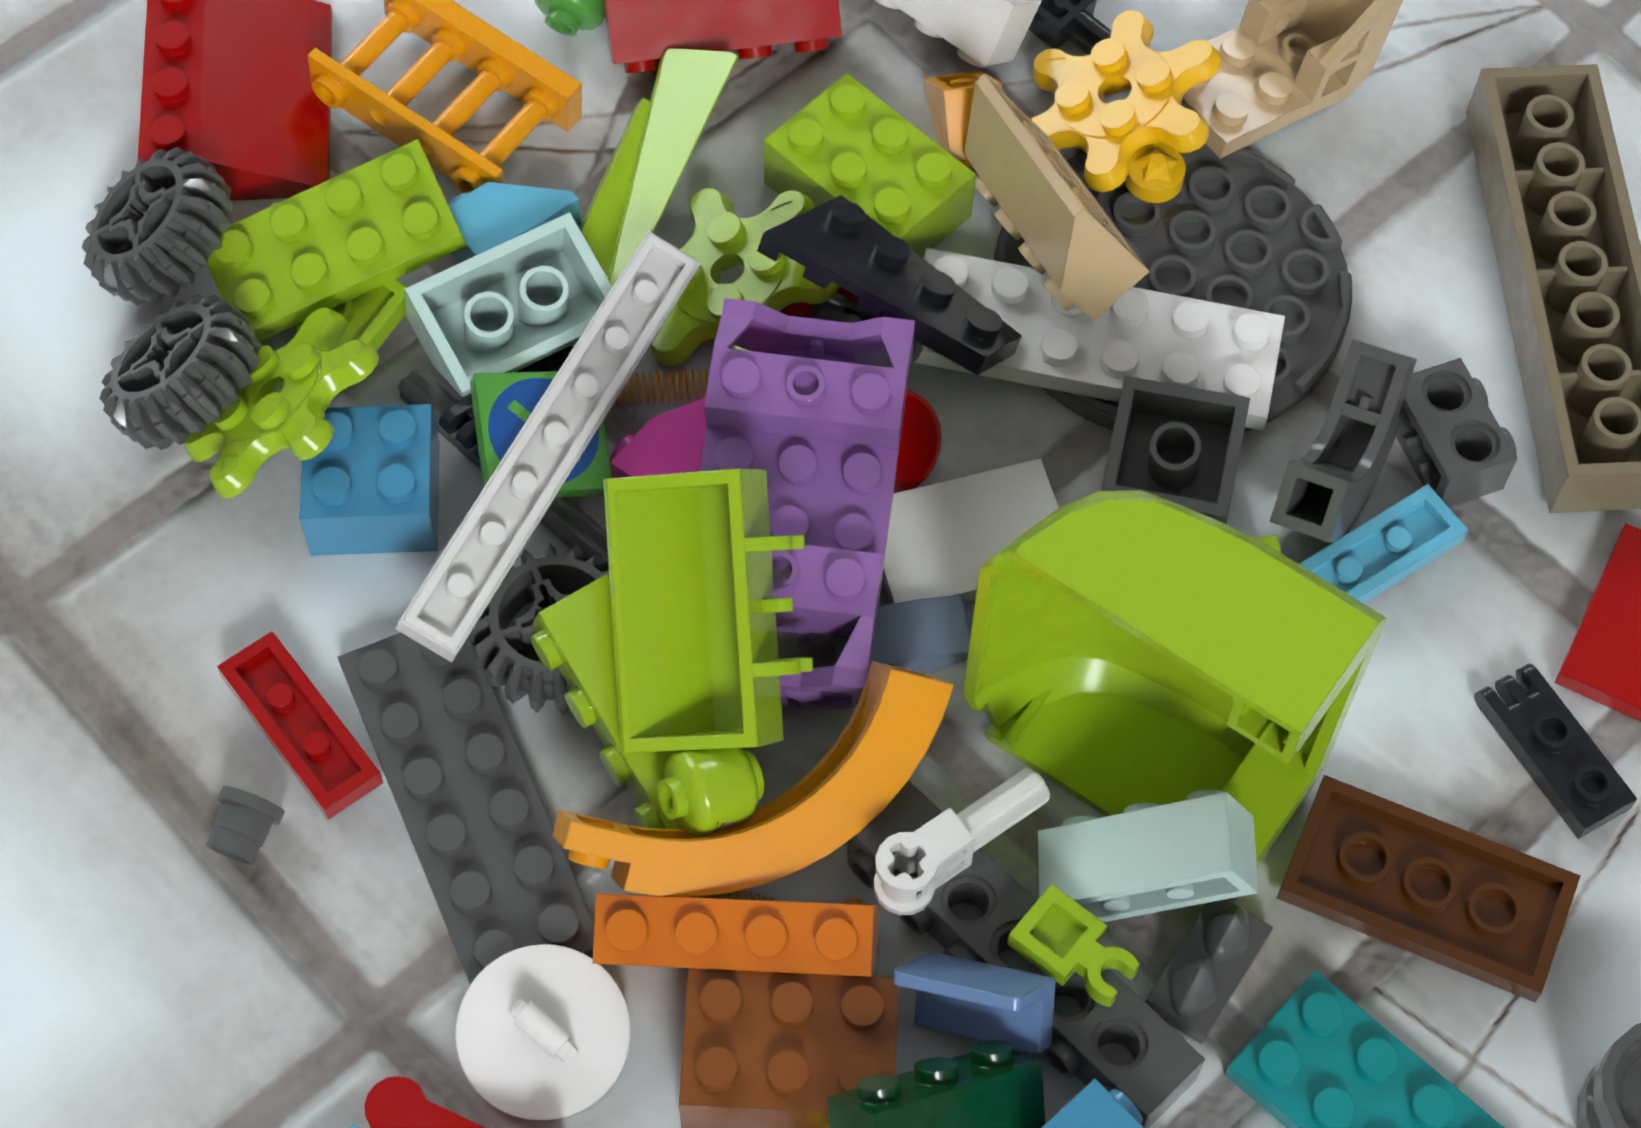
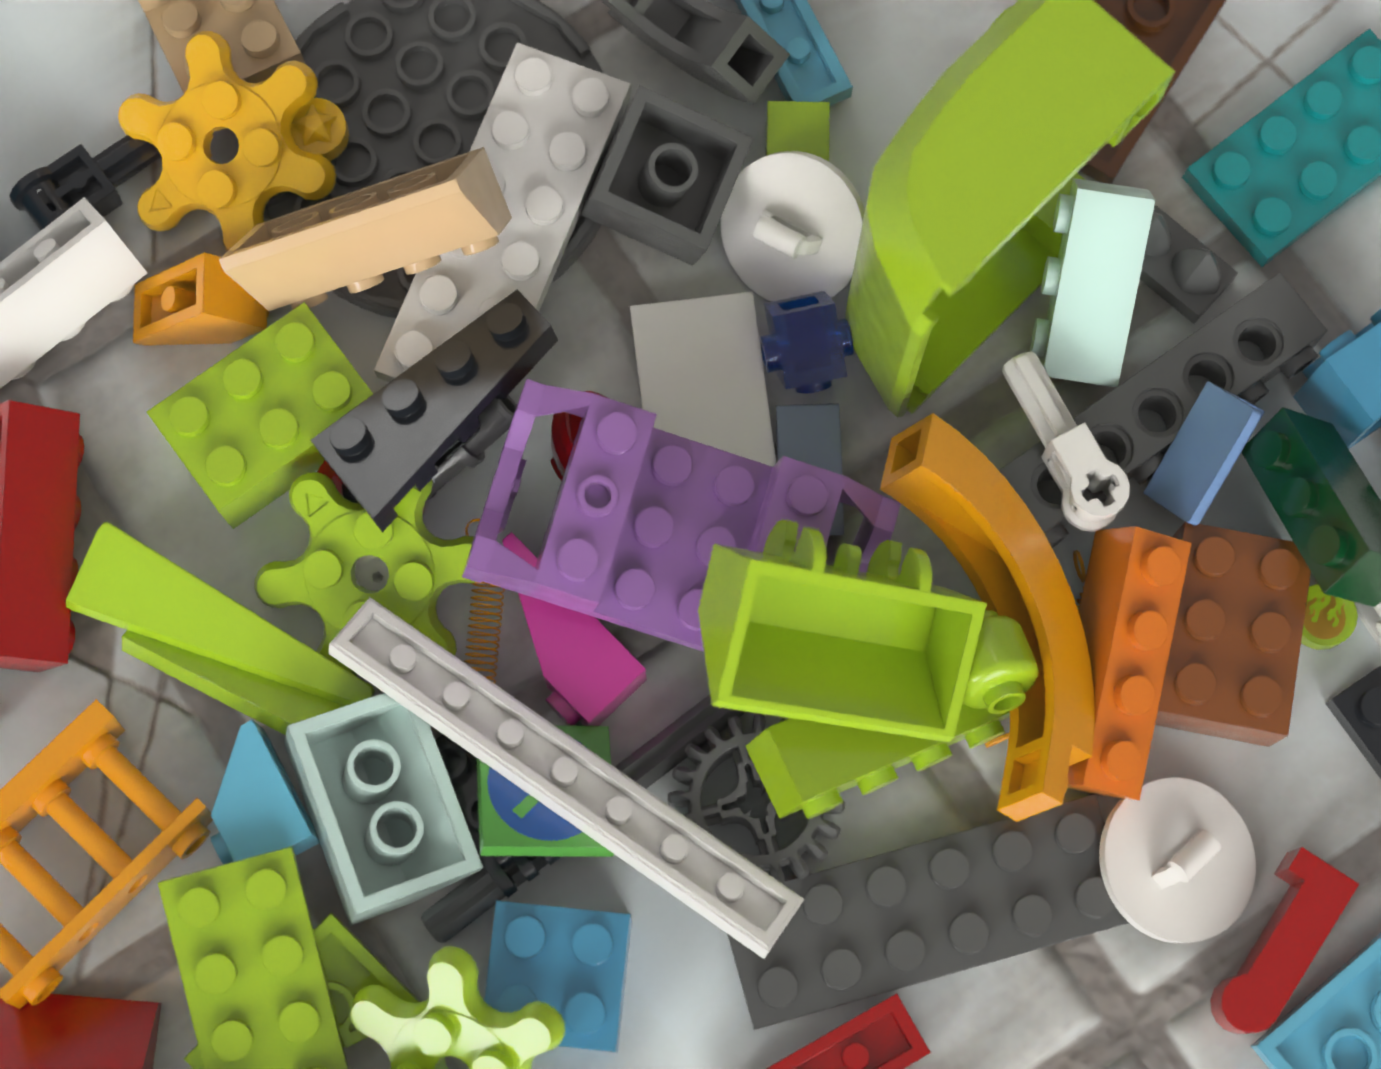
camera: 80 degrees left, 15 degrees up
(1065, 939) = (1174, 366): lime plate -> none

